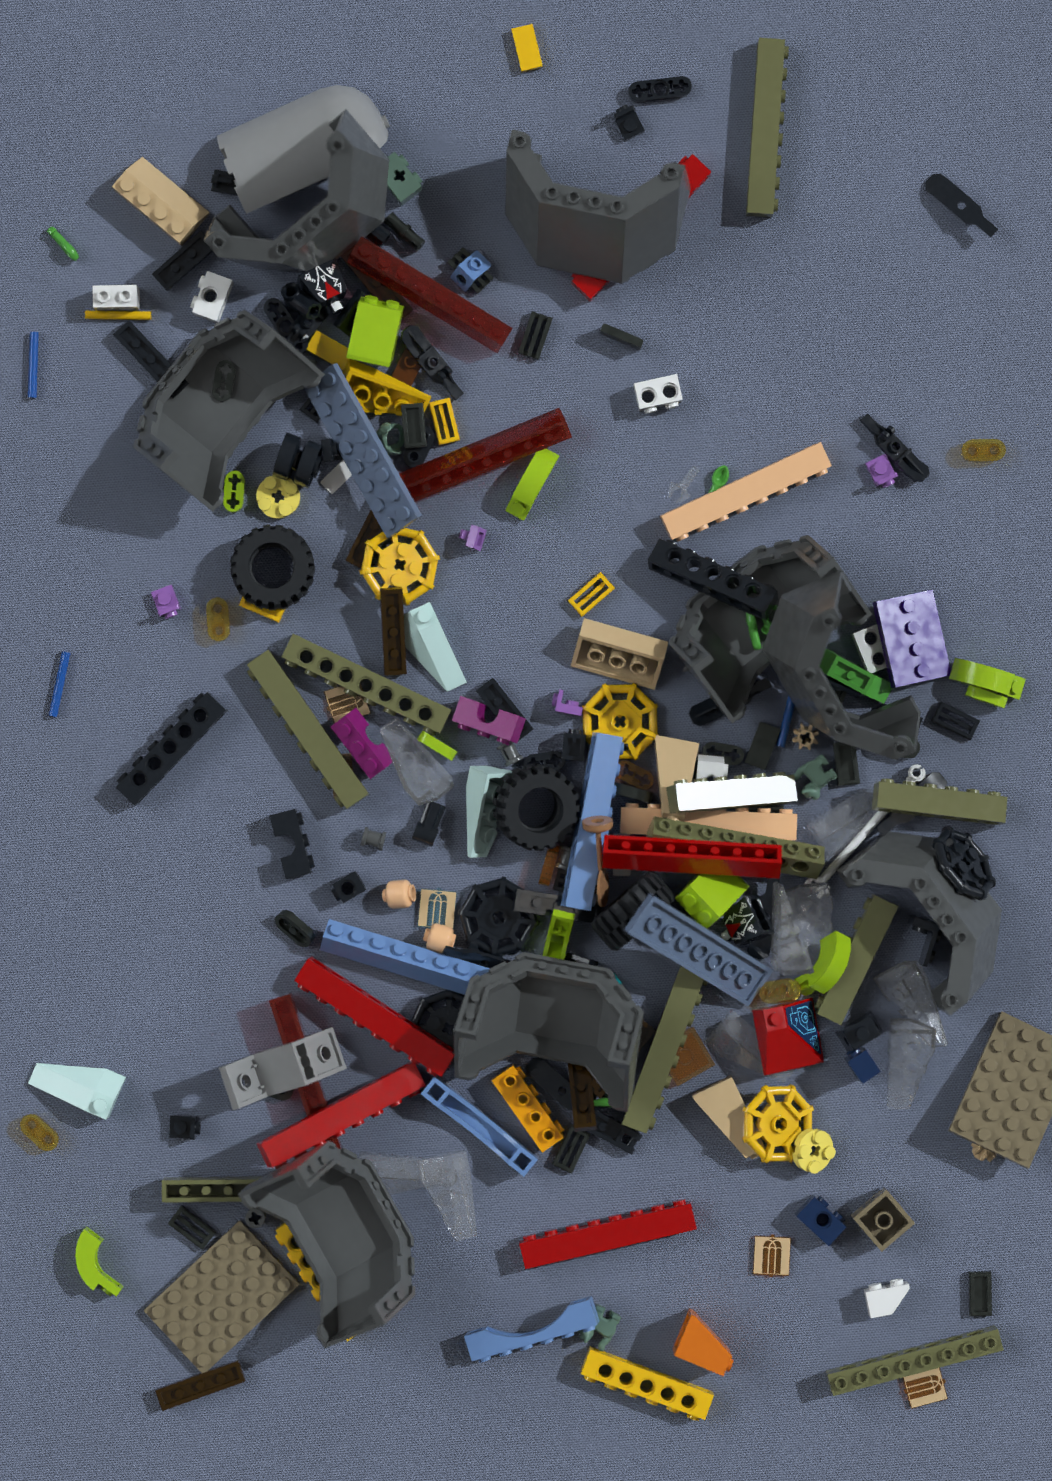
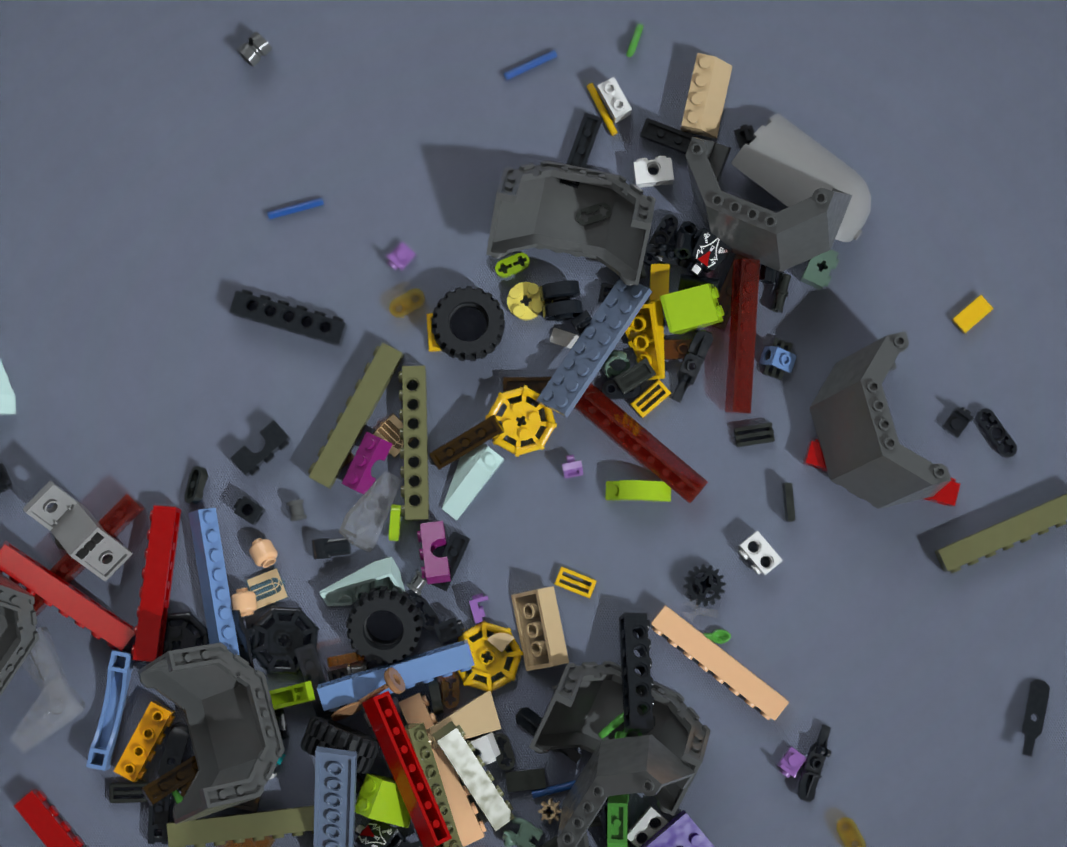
camera: 65 degrees right, 5 degrees down
(611, 698) = (500, 640): none -> tan tile
(667, 472) = (712, 588): none -> black gear

